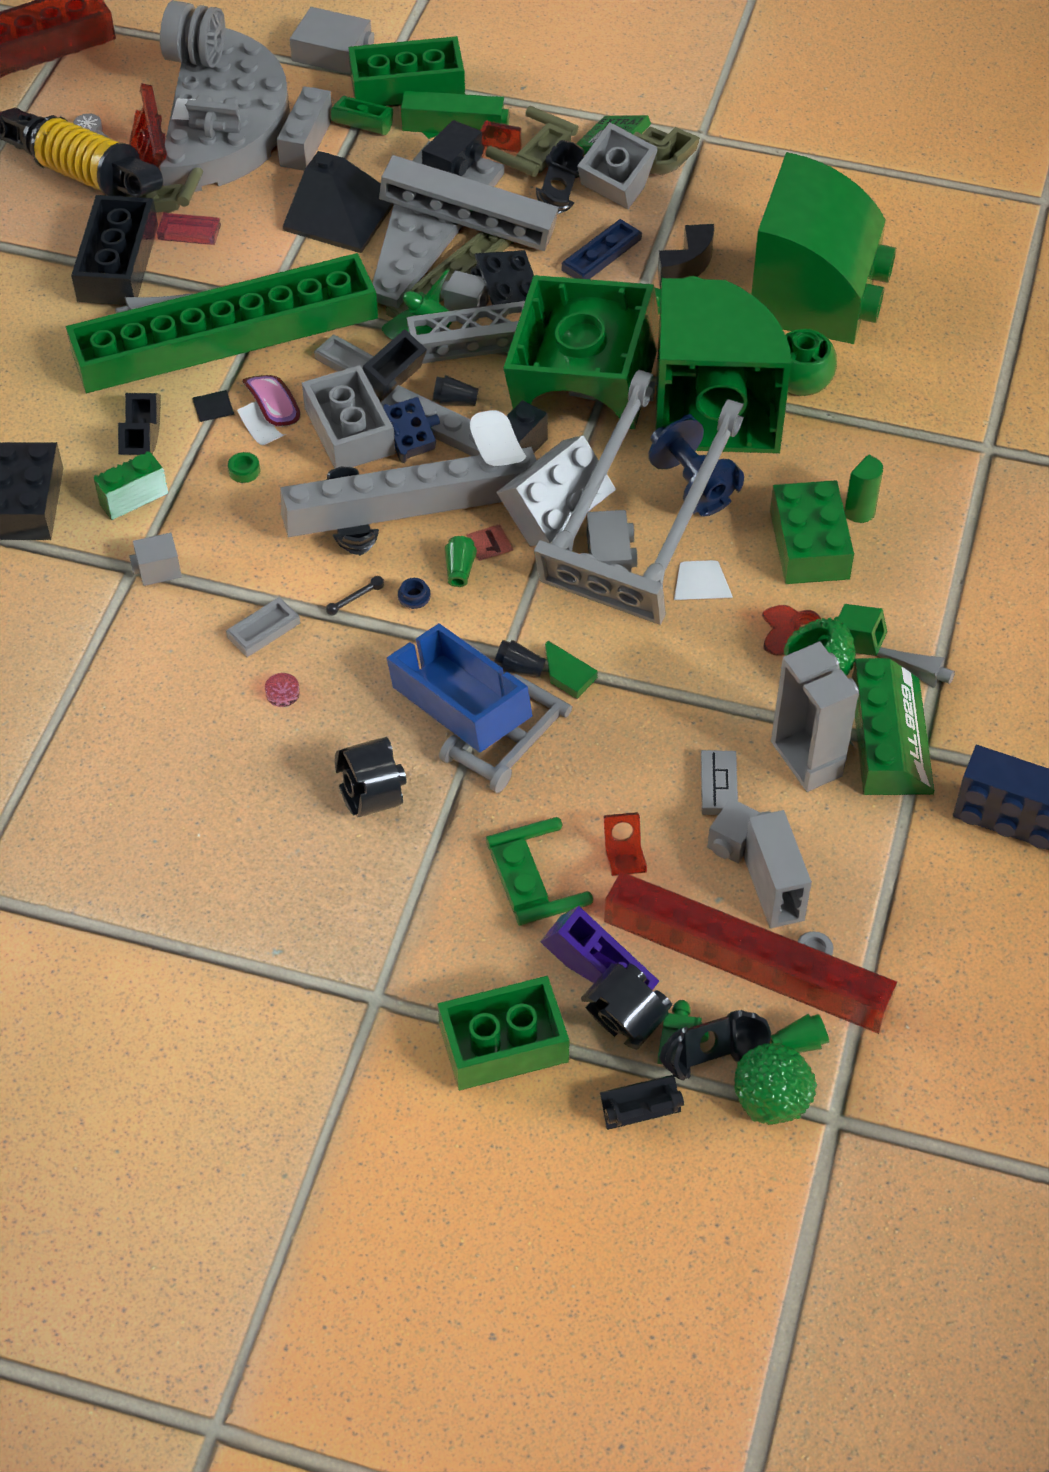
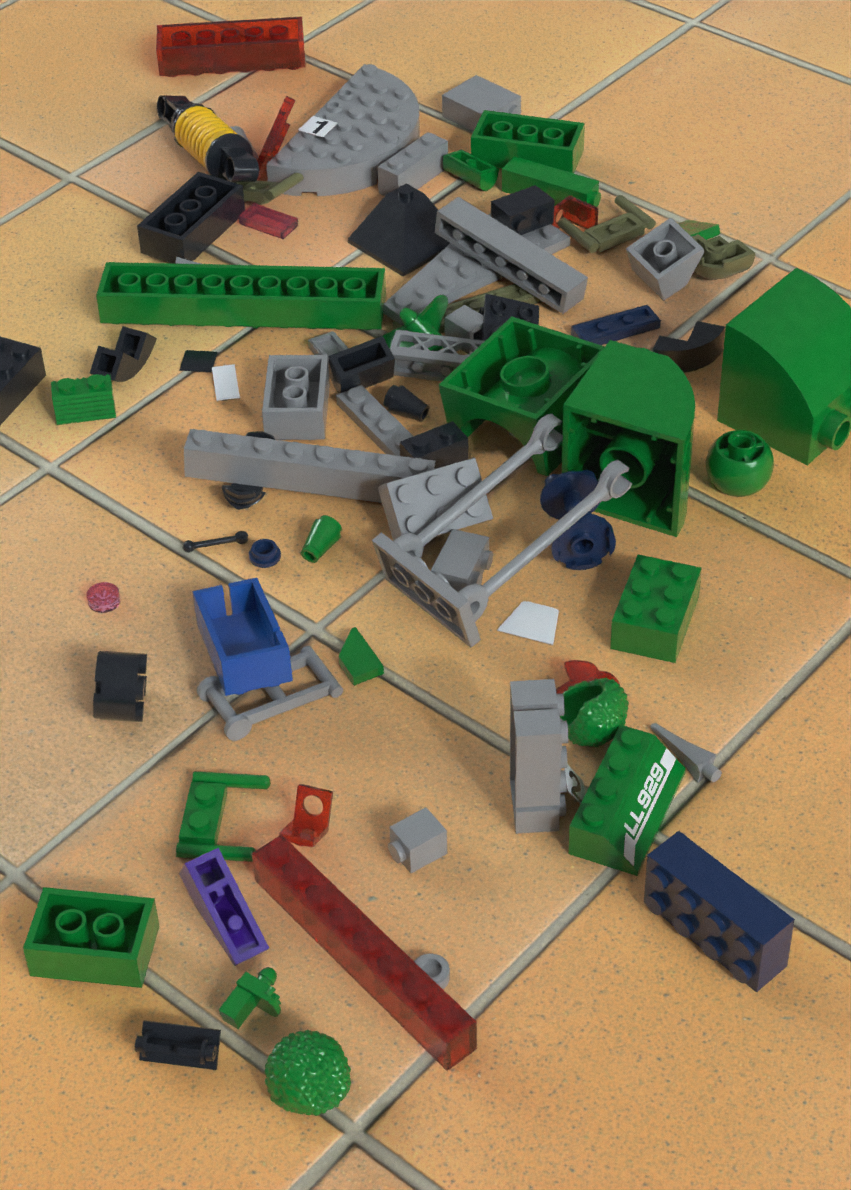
camera: 25 degrees right, 10 degrees down
(89, 121) = (241, 121): light grey tile -> none
(155, 559) = (66, 462): light grey brick -> none
(192, 34) = (348, 66): light grey wheel -> none
(214, 115) = (327, 133): light grey hips -> none
(244, 467) = (190, 414): green tile -> none
(263, 627) = (121, 543): light grey tile -> none
(273, 399) = (248, 369): sticker -> none
(407, 436) = (344, 419): dark blue piece -> none
(490, 542) = (360, 533): clear red sticker -> none
(495, 438) = (404, 443): white sticker -> none
(519, 659) = (318, 634): black cone -> none
(562, 166) = (616, 252): black piece -> none
(626, 1004) = (211, 951): black brick -> none
(718, 780) = (437, 791): light grey tile -> none
(733, 1036) = (240, 1008): black piece -> none
(777, 868) = (428, 883): light grey brick -> none
(803, 1034) = (367, 1042): green cone -> none
(864, 490) = (724, 585): green brick -> none
(866, 627) = (650, 705): green brick -> none

